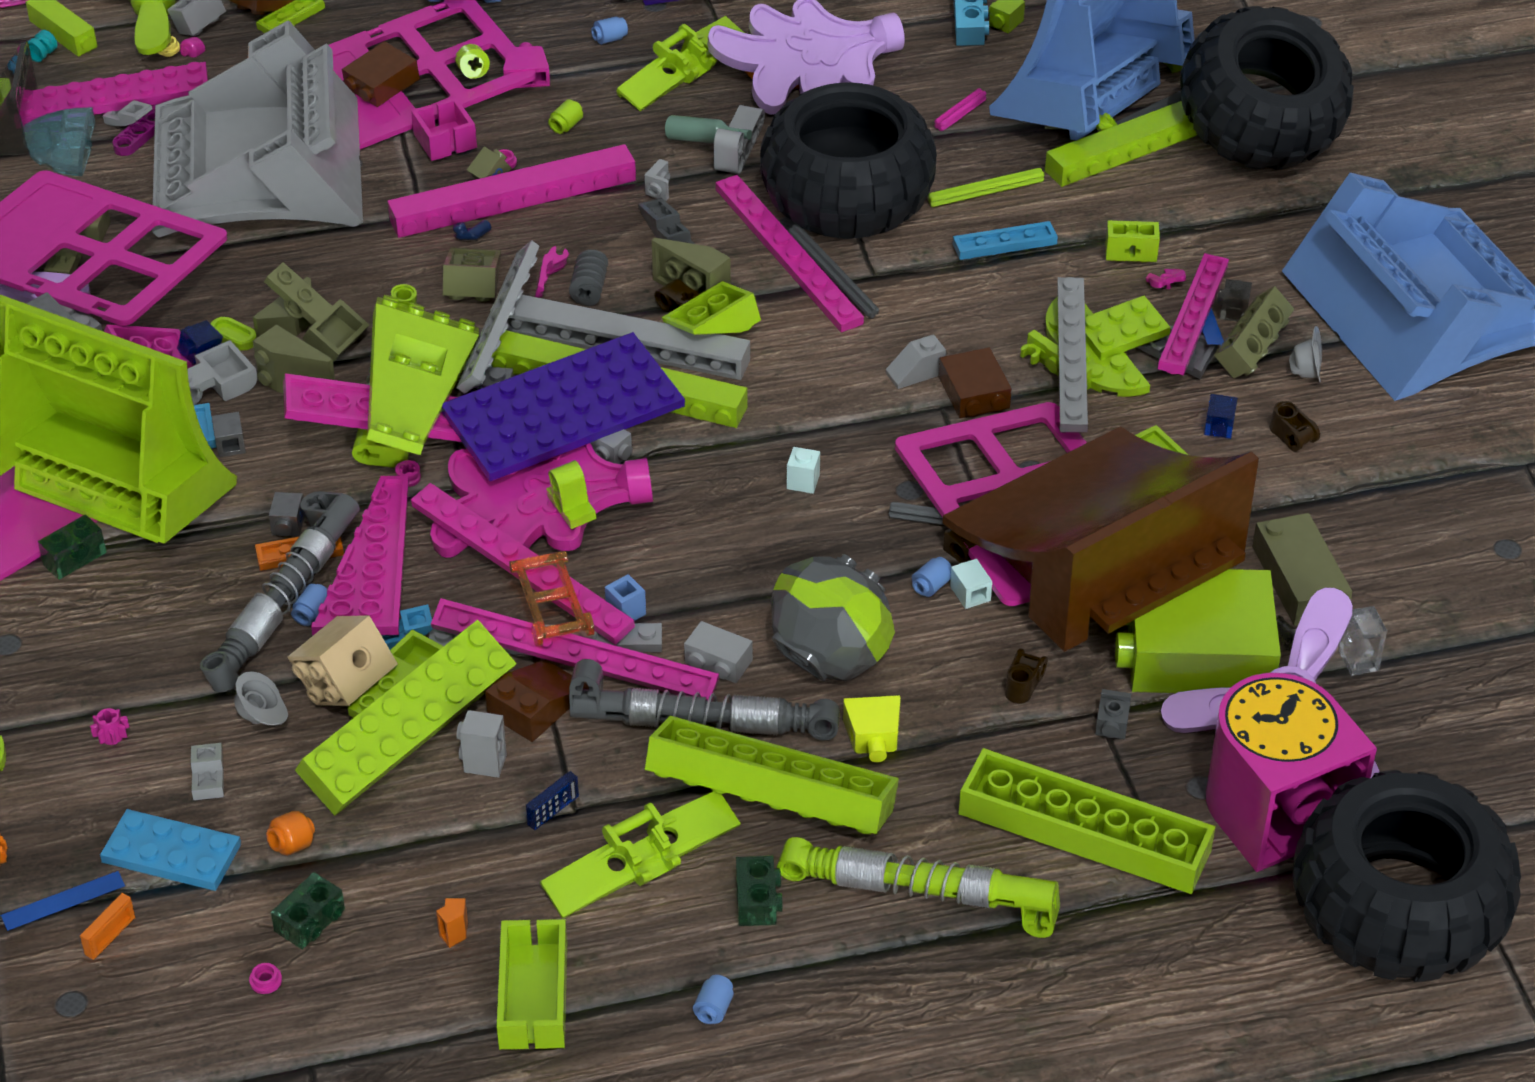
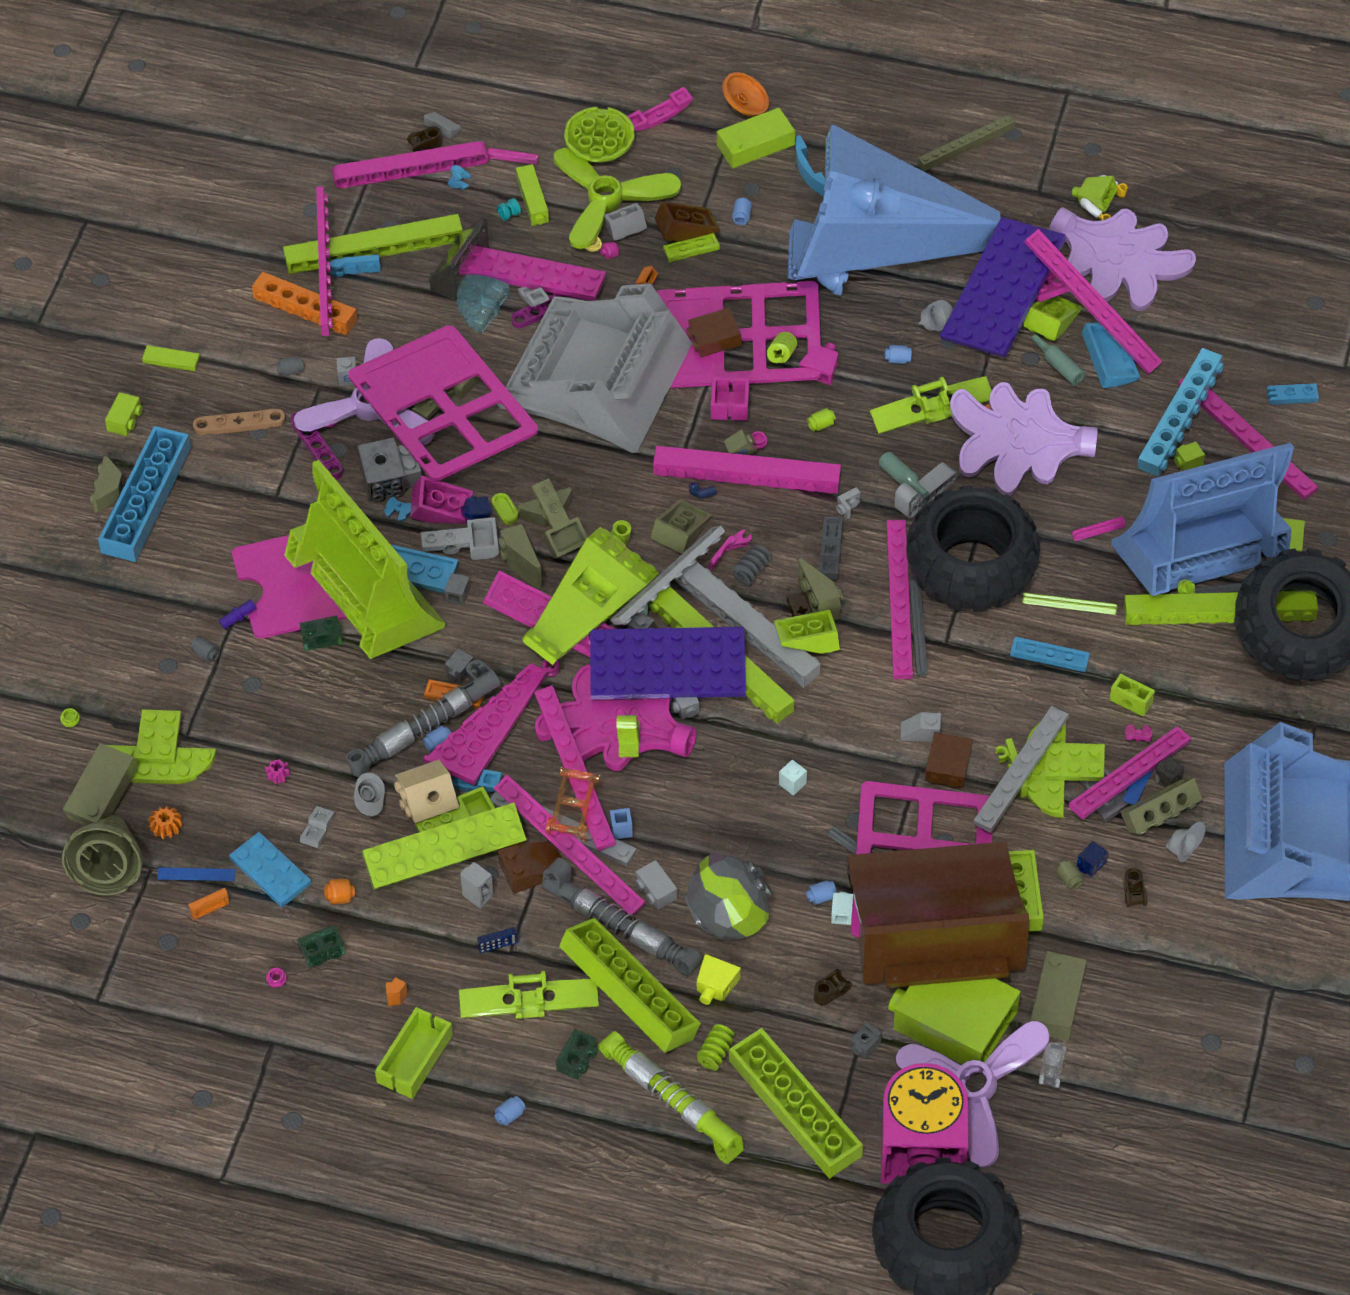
camera: 30 degrees right, 10 degrees up
(934, 802) = (715, 1047): none -> lime piece
(1208, 441) = (1070, 874): none -> olive brick

